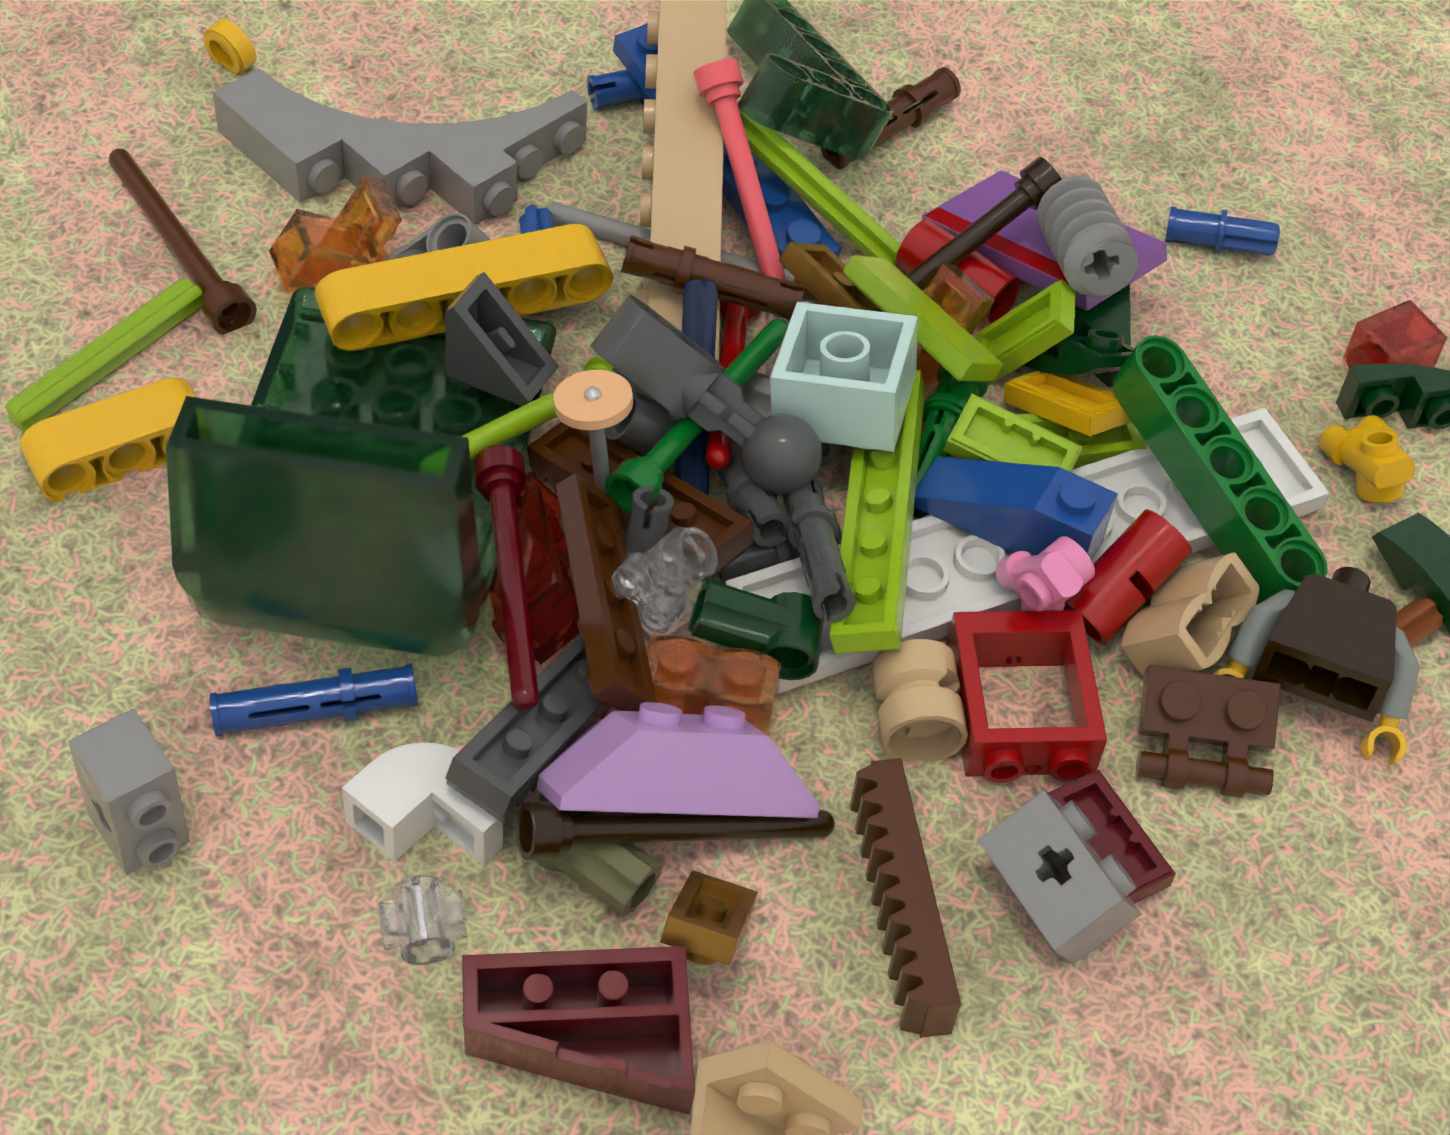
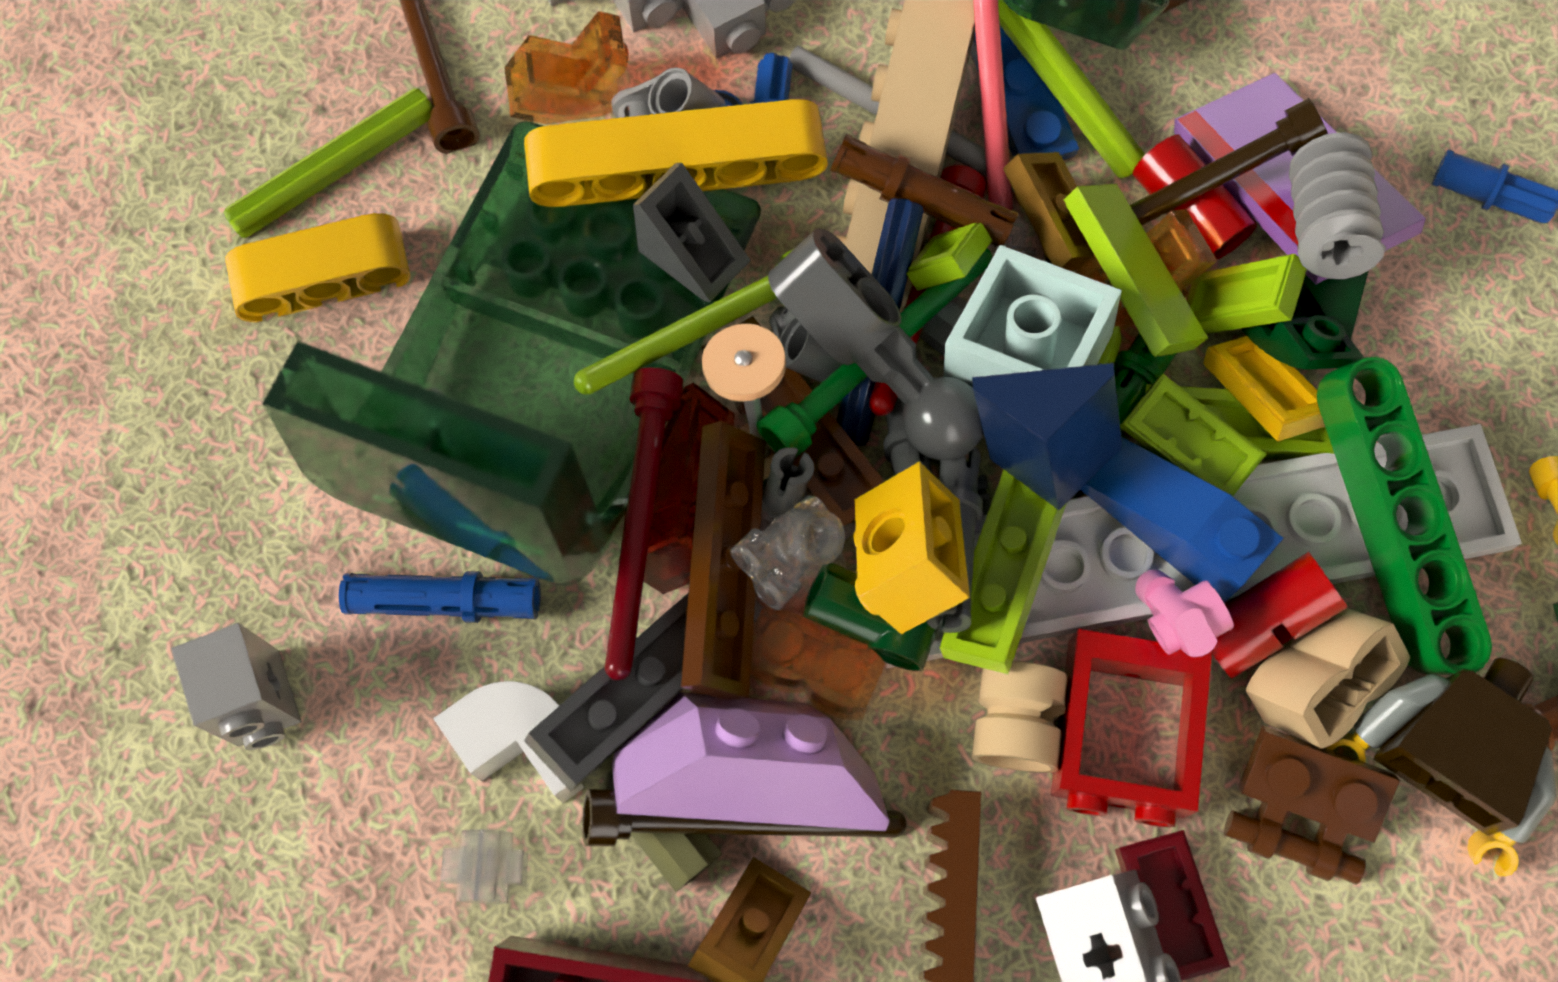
camera: 20 degrees right, 20 degrees up
(749, 327) = (949, 256): none -> lime tile
(781, 546) = (910, 549): none -> yellow brick
(883, 429) = (1051, 426): none -> dark blue slope

